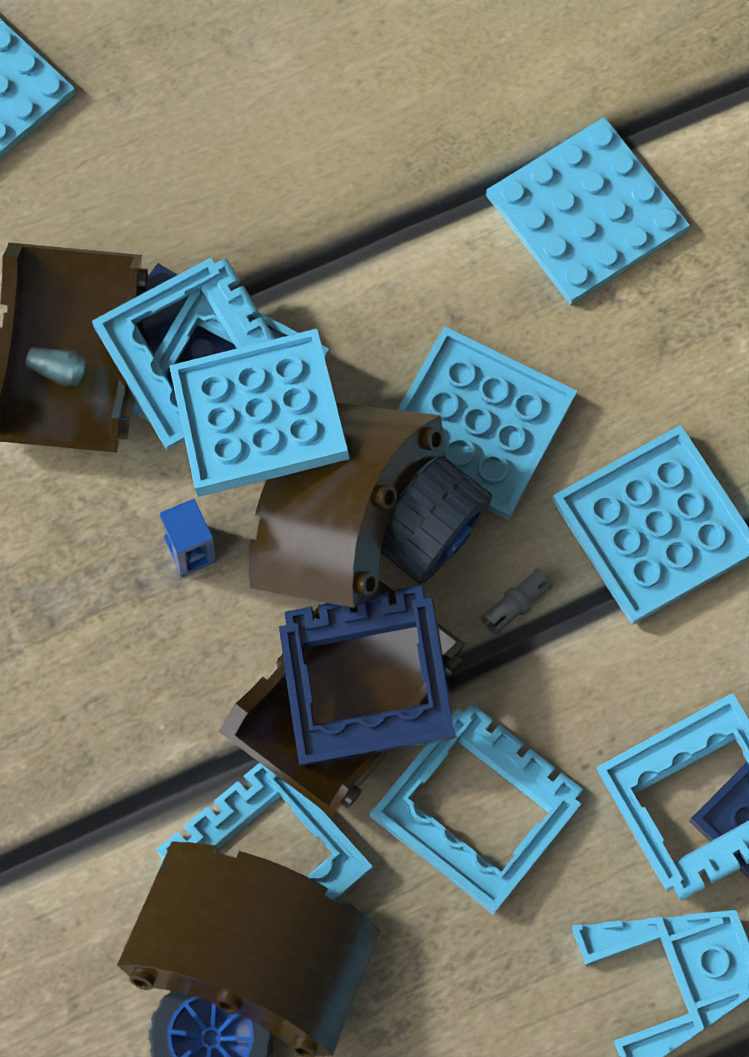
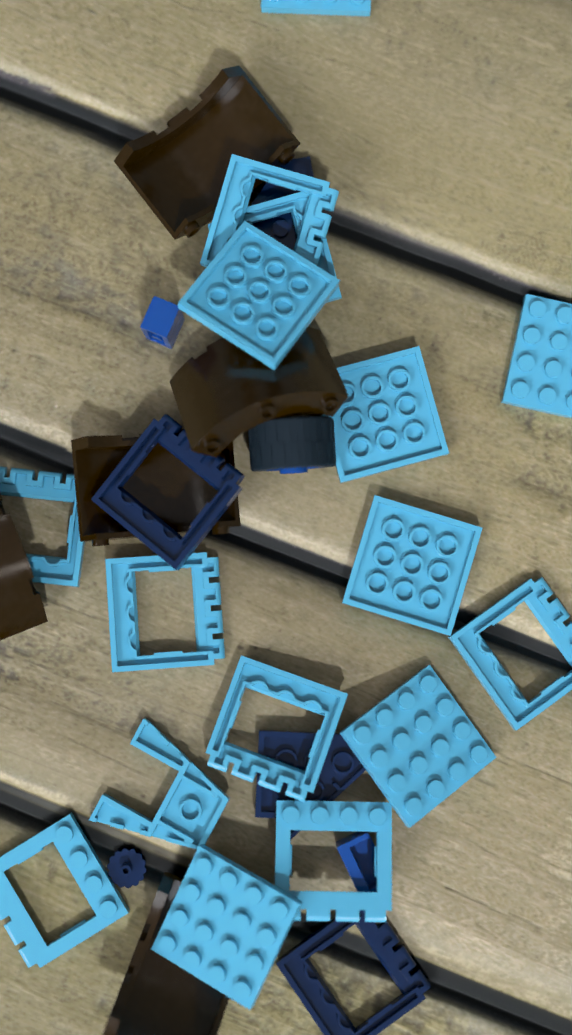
camera: 50 degrees right, 15 degrees up
(58, 365) = (197, 160): clear light blue cone -> none
(517, 601) = (296, 529): dark grey pin -> none

